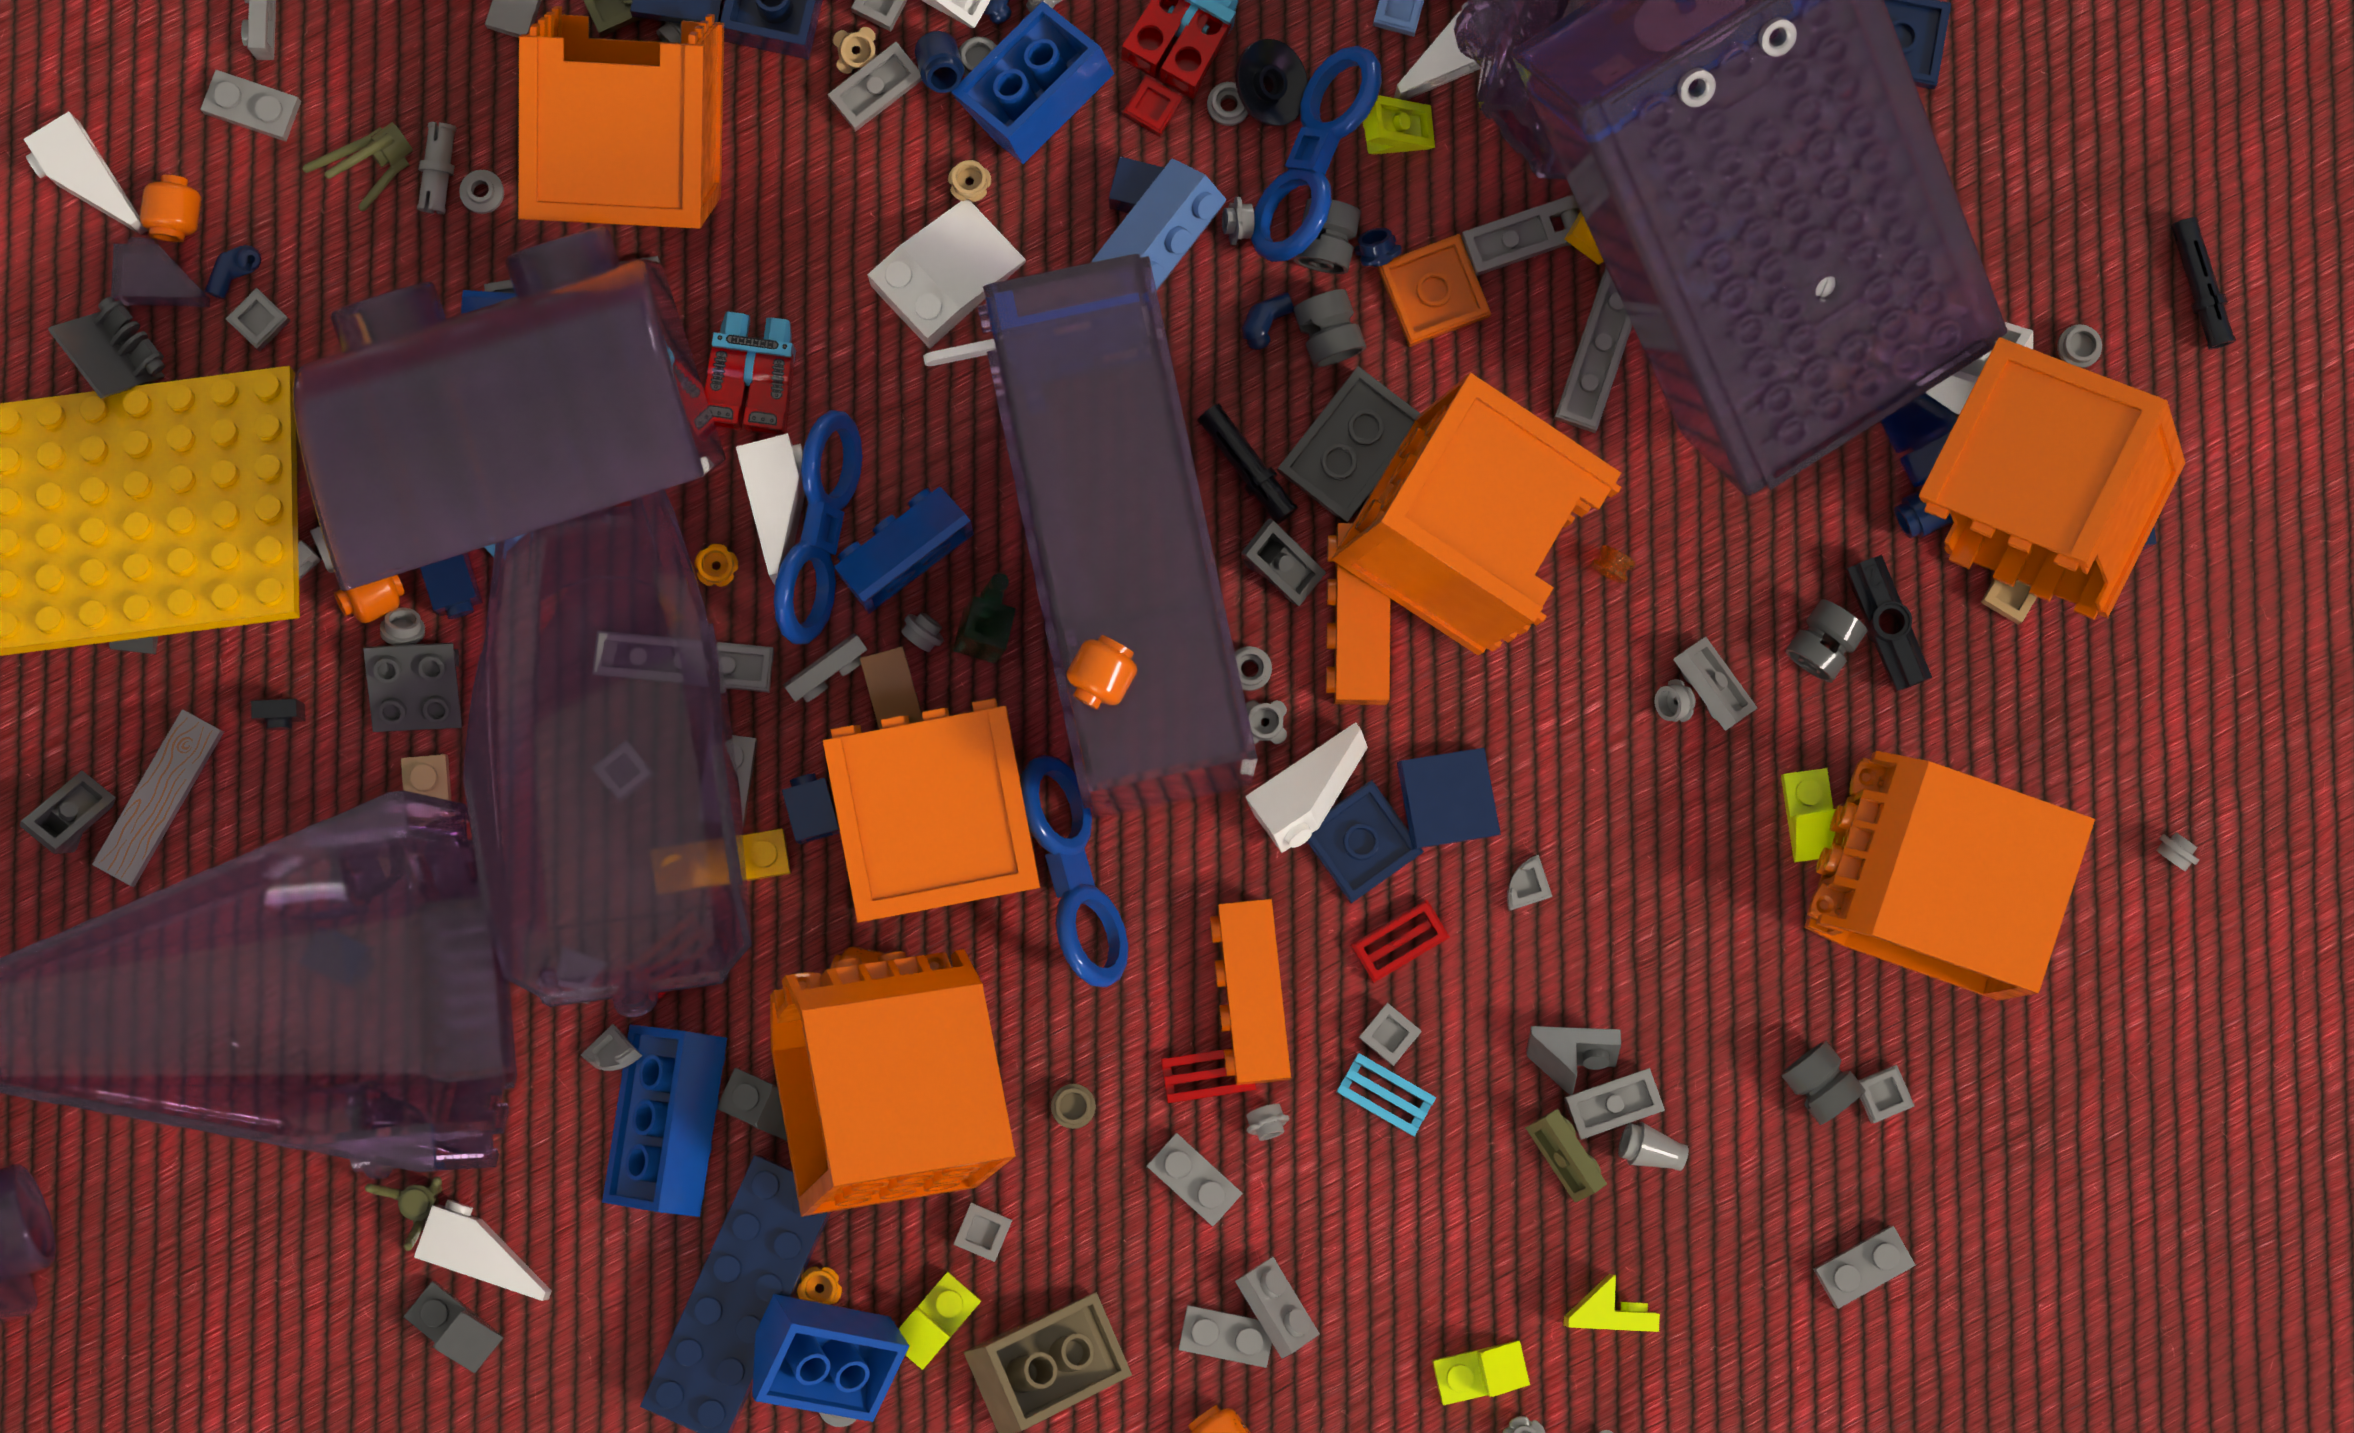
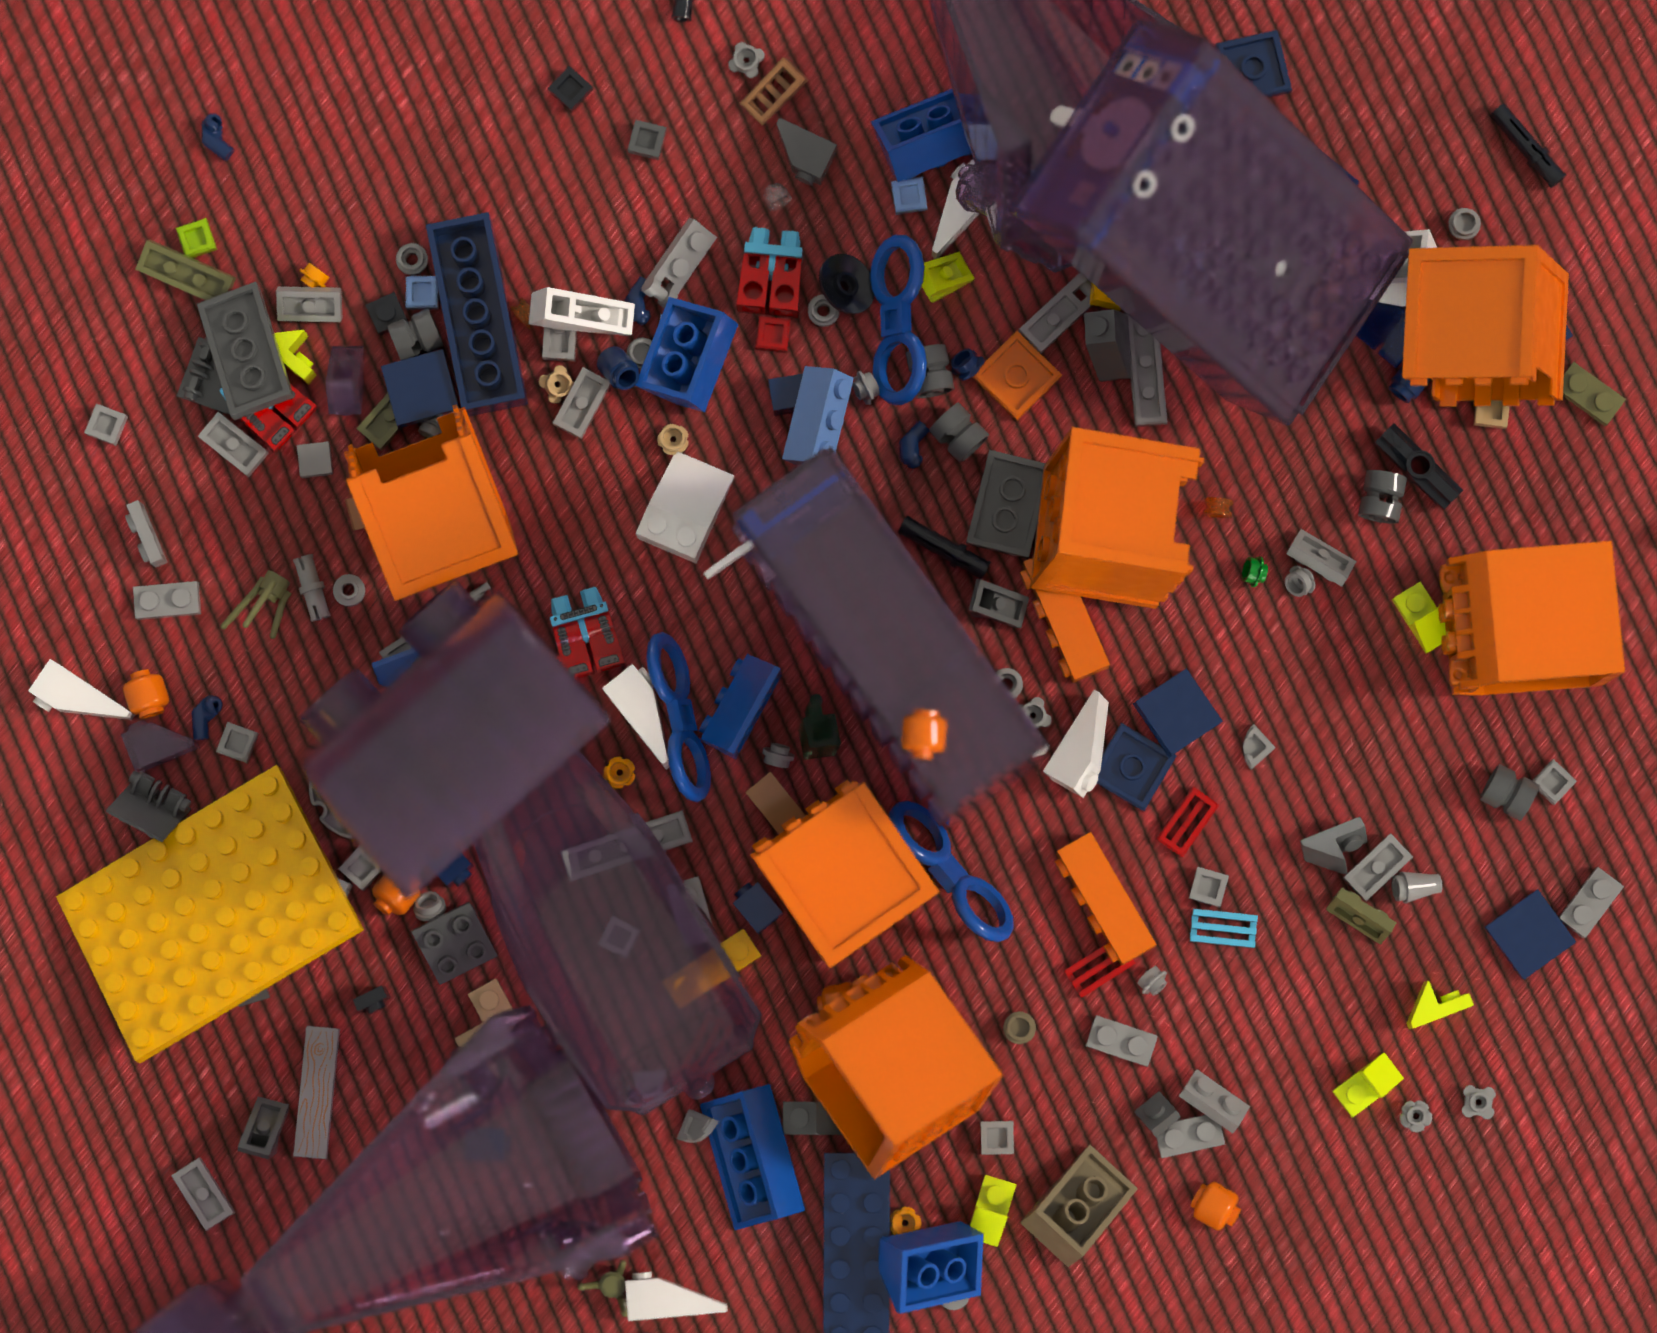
camera: 10 degrees left, 0 degrees up
(841, 658) = (731, 798): light grey plate -> none
(1198, 1292) = (1157, 1114): none -> dark grey plate
(1566, 299) = (1108, 344): none -> dark grey slope
(1623, 663) = (1254, 571): none -> green plate
(1769, 1273) = (1530, 934): none -> dark blue tile
(2145, 629) = (1591, 394): none -> olive plate

